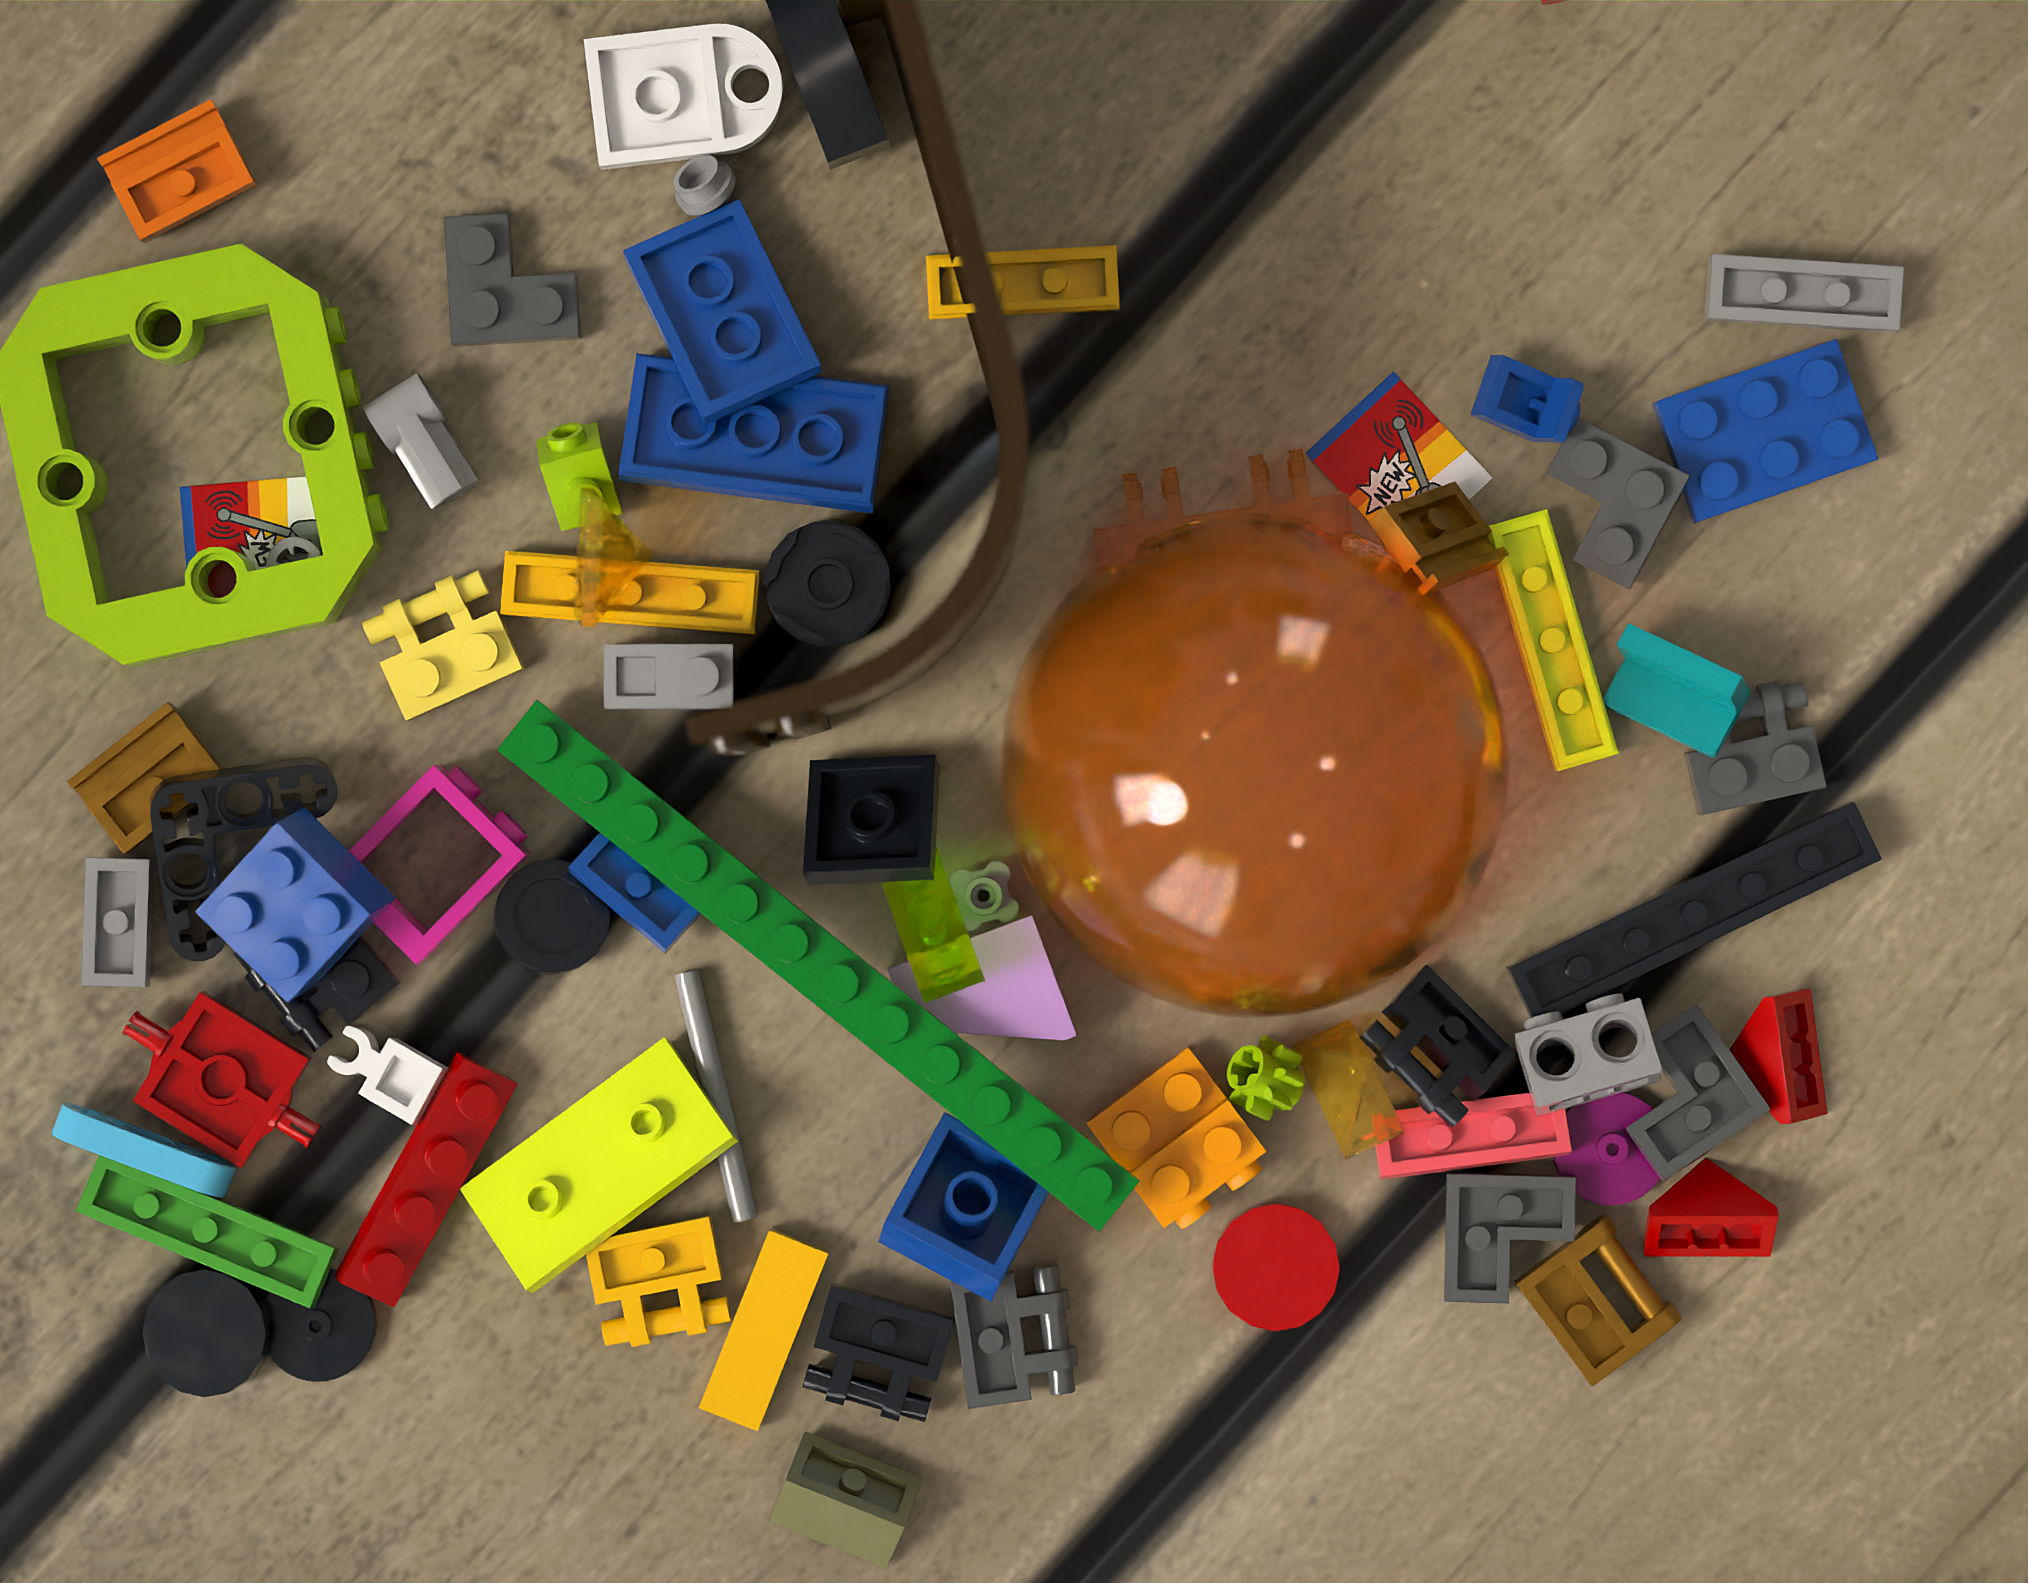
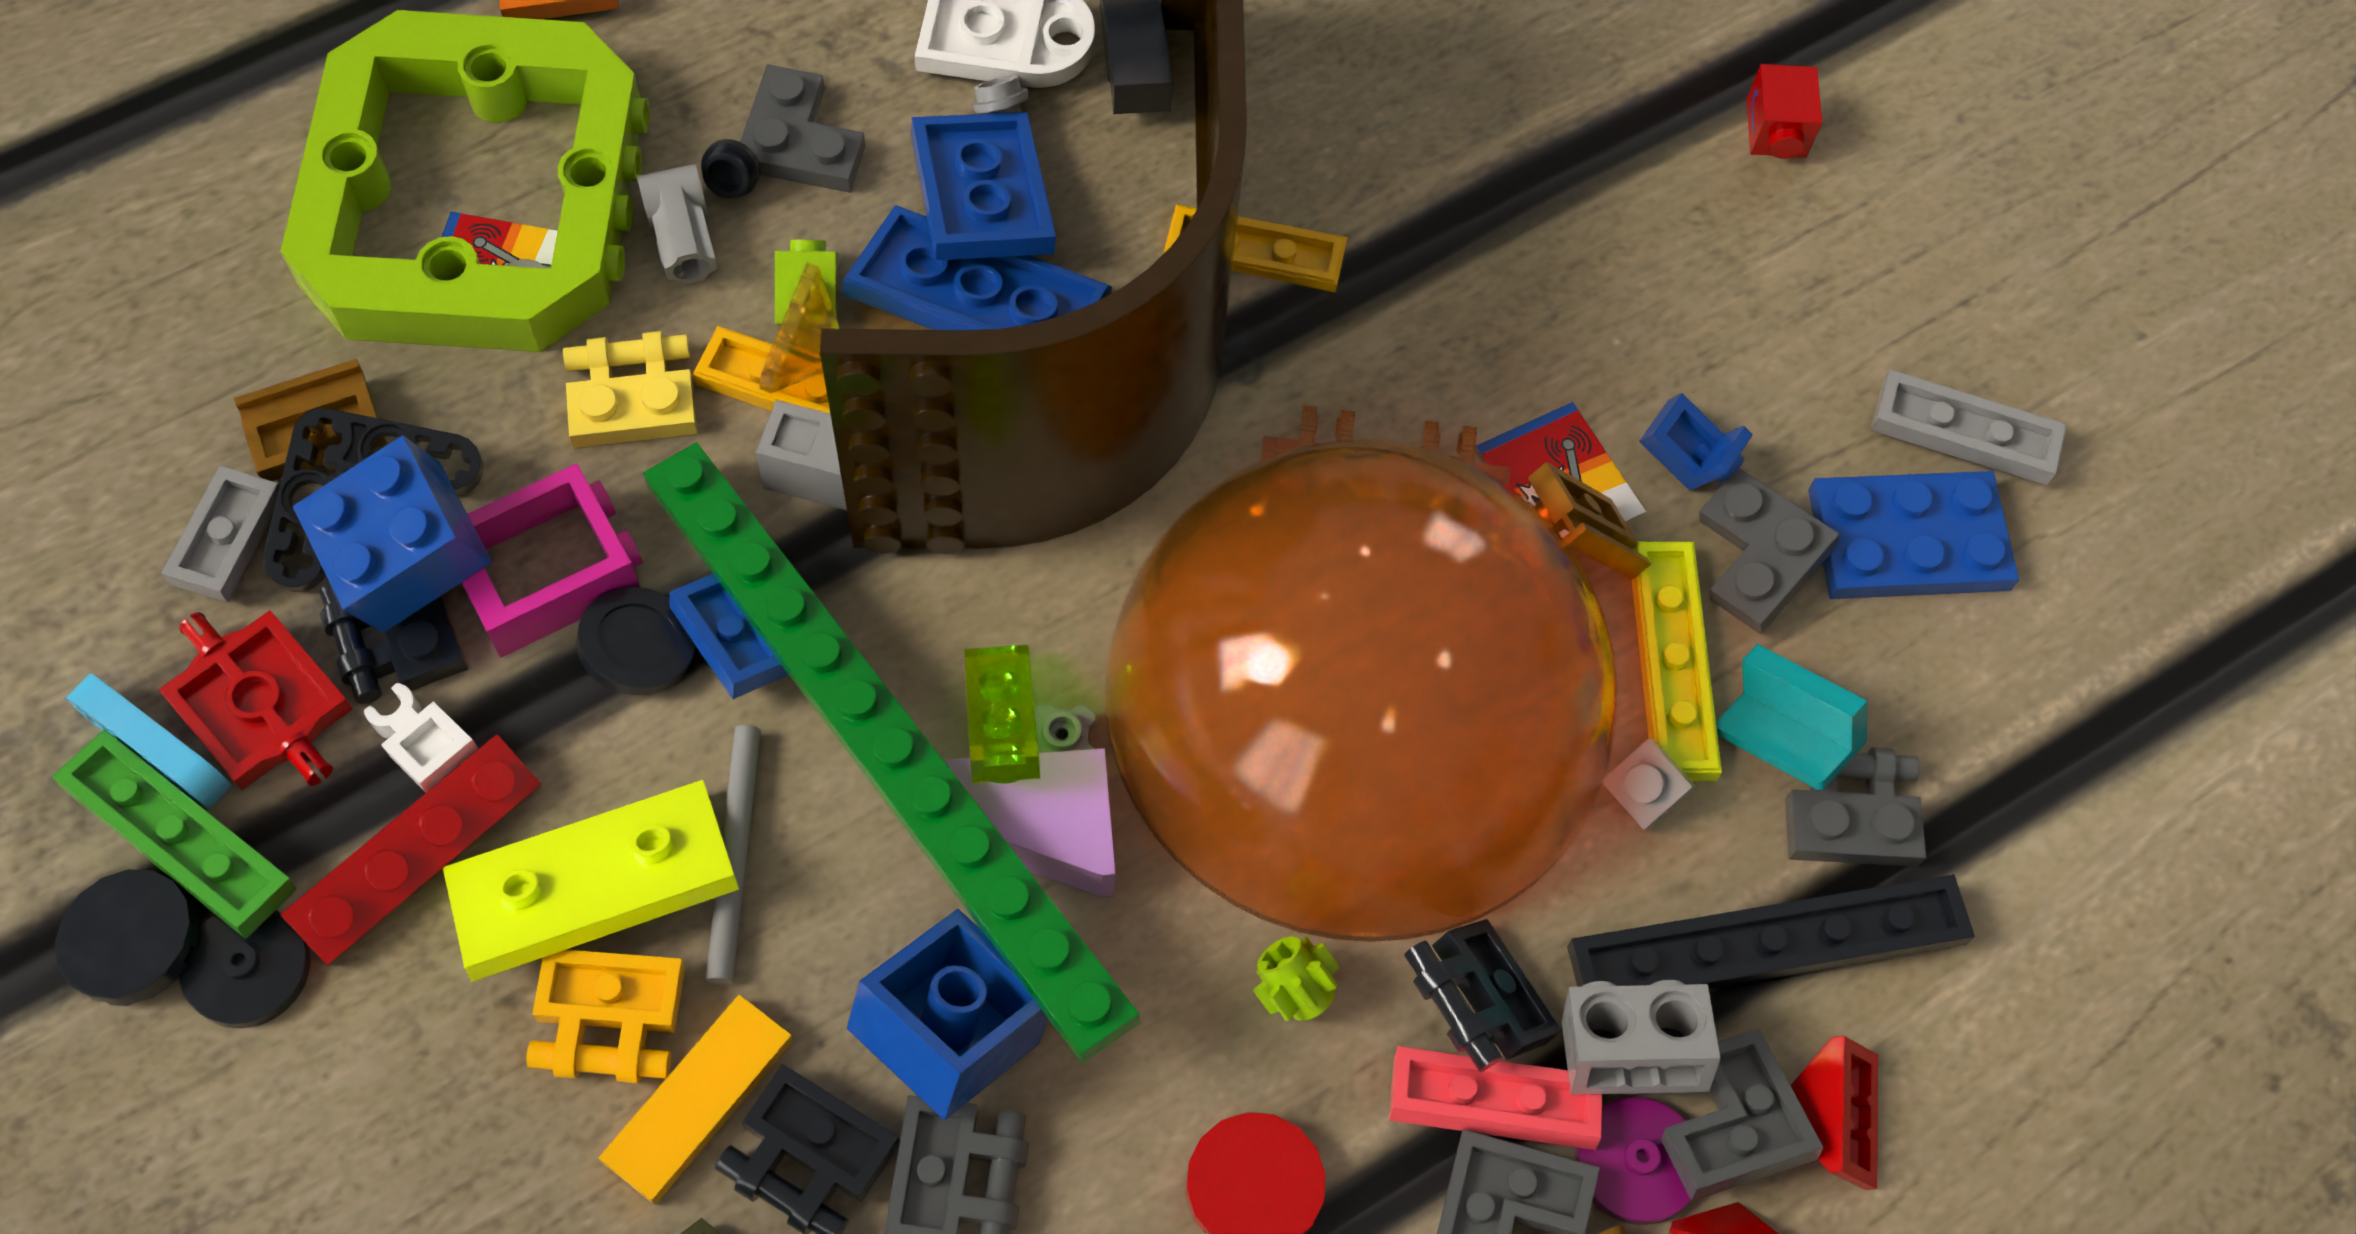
camera: 15 degrees right, 25 degrees down
(452, 364) = (730, 168): none -> black plate
(871, 820) = (974, 626): black plate -> none
(1178, 1139) = (1194, 1024): light orange plate -> none
(1348, 1088) = (1381, 1016): clear yellow slope -> none
(1551, 787) = (1648, 784): none -> light grey plate

